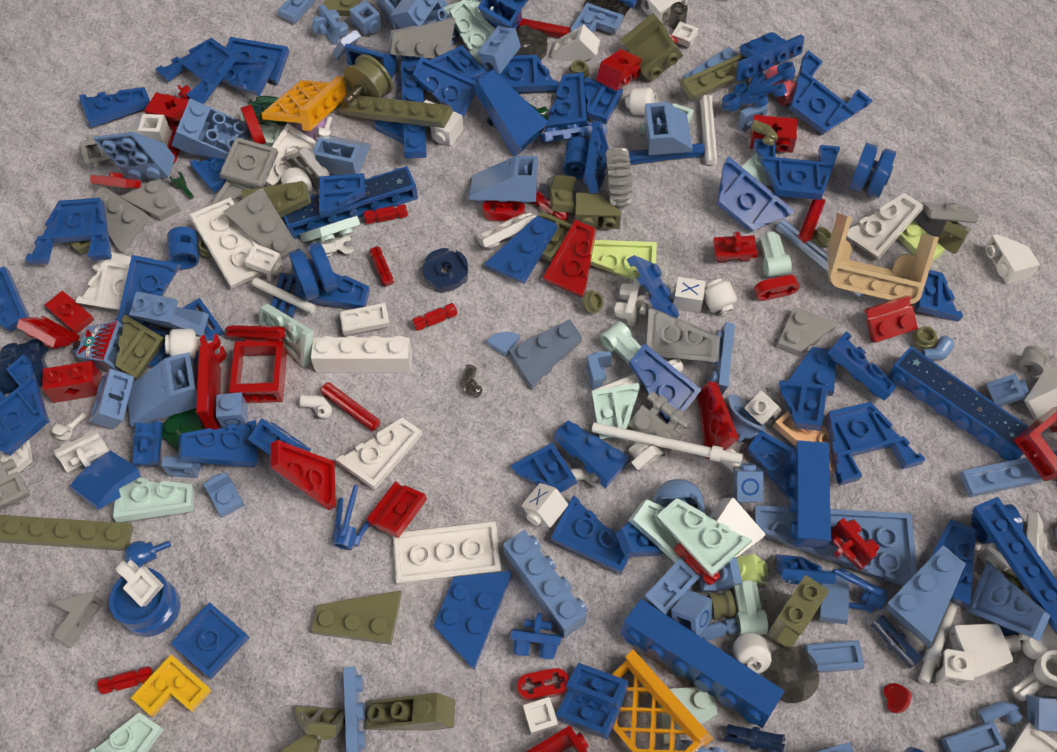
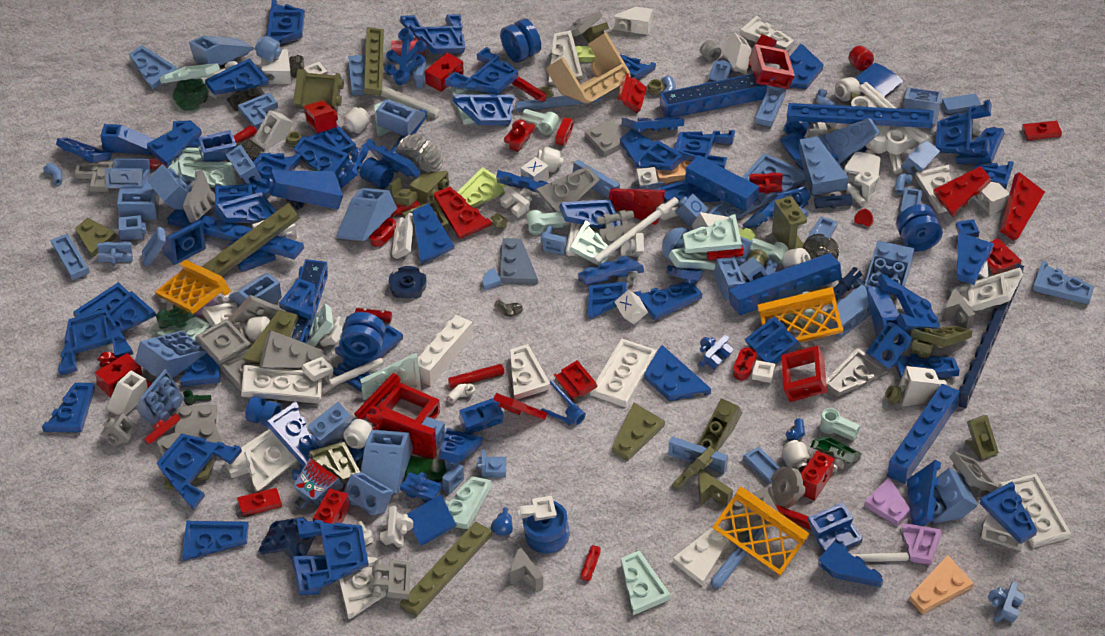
camera: 60 degrees left, 15 degrees down
(47, 331) = (267, 517): red plate -> none
(167, 681) = (610, 538): yellow plate -> none
(210, 640) = (596, 508): blue plate -> none
(253, 124) = (189, 323): red beam -> none
(364, 319) = (412, 339): white plate -> none
(367, 79) = (202, 245): olive wheel -> none
(385, 214) = (329, 293): red axle -> none
(434, 316) = (440, 305): red axle -> none
(545, 584) = (681, 330): medium blue brick -> none
(766, 130) = (453, 69): olive arm -> none
(767, 52) = (377, 36): blue bracket -> none

